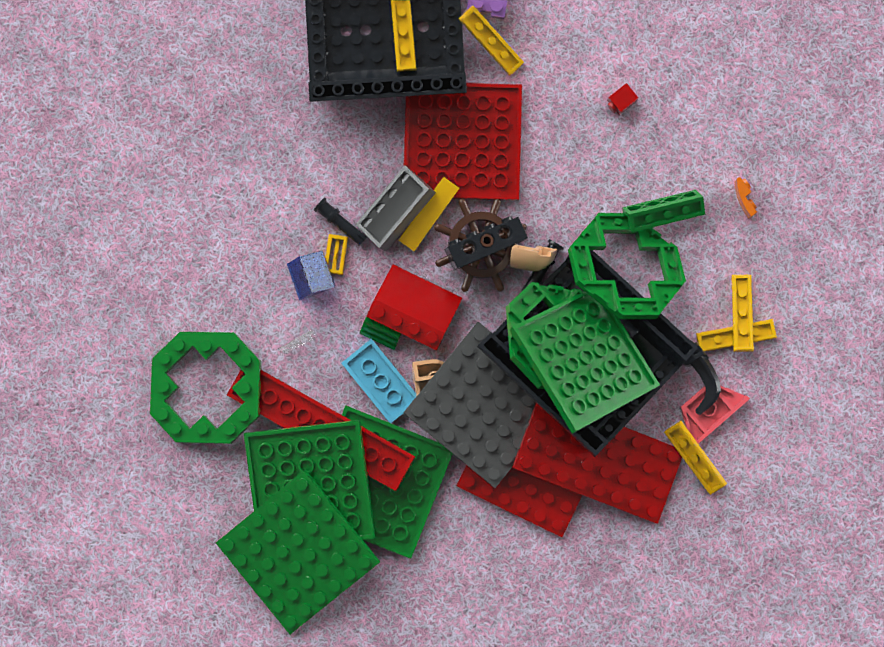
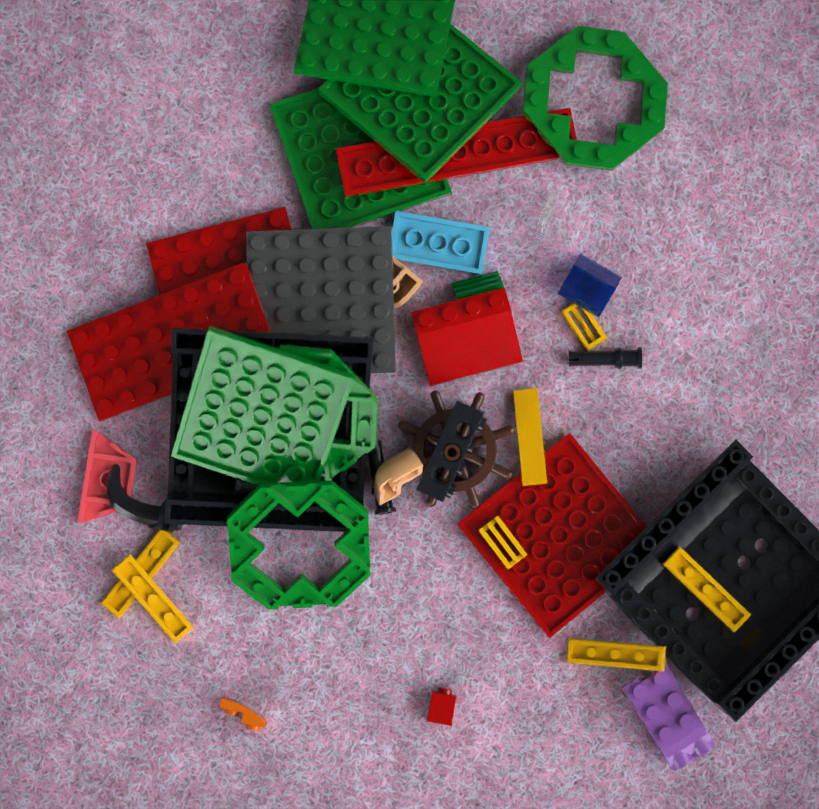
camera: 135 degrees right, 0 degrees up
(395, 208) = (565, 414): dark grey slope -> none
(501, 148) = (515, 559): none -> yellow tile
(664, 210) = (309, 631): green fence -> none
(695, 457) = (82, 422): yellow tile -> none

